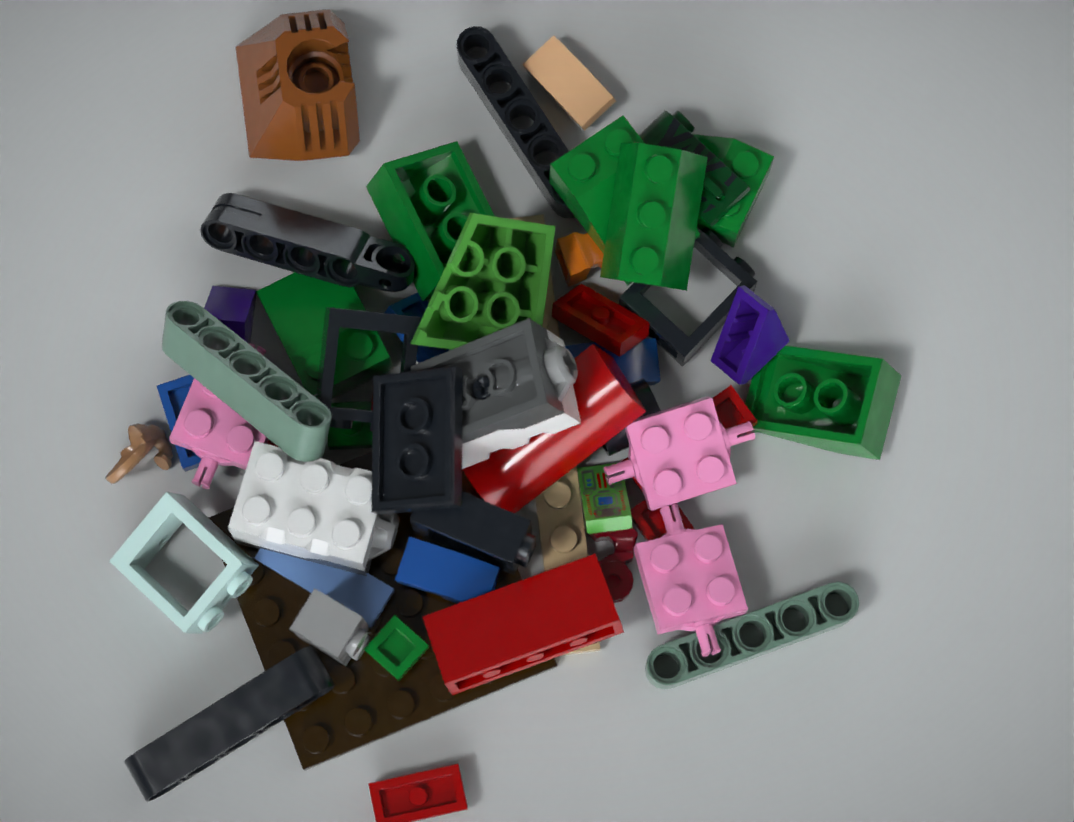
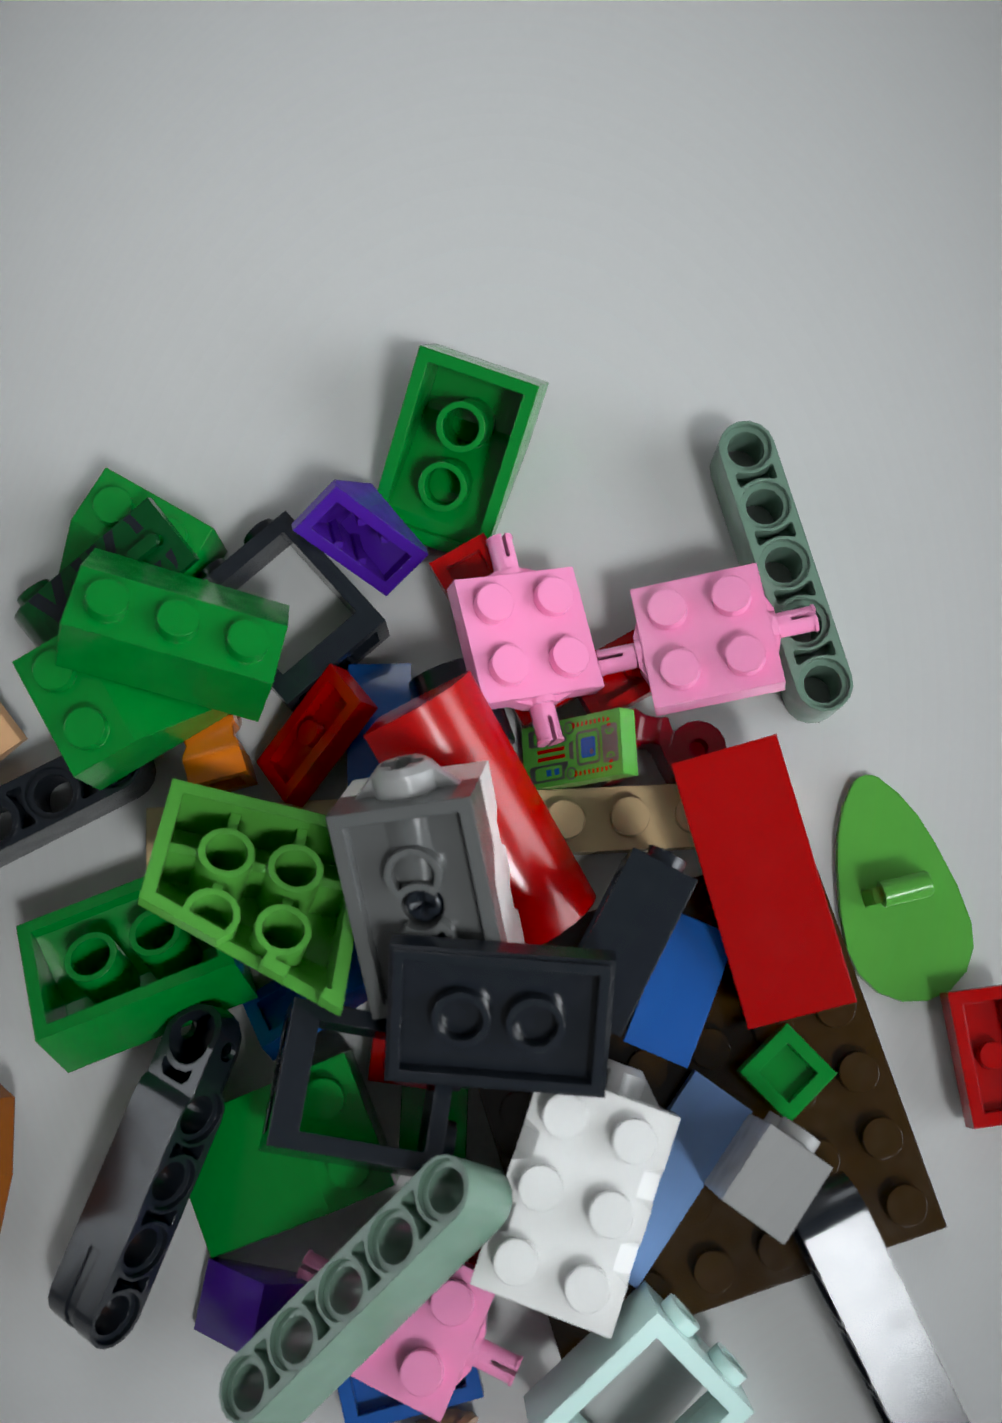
camera: 90 degrees left, 0 degrees up
(524, 735) = (897, 898): none -> bright green shield

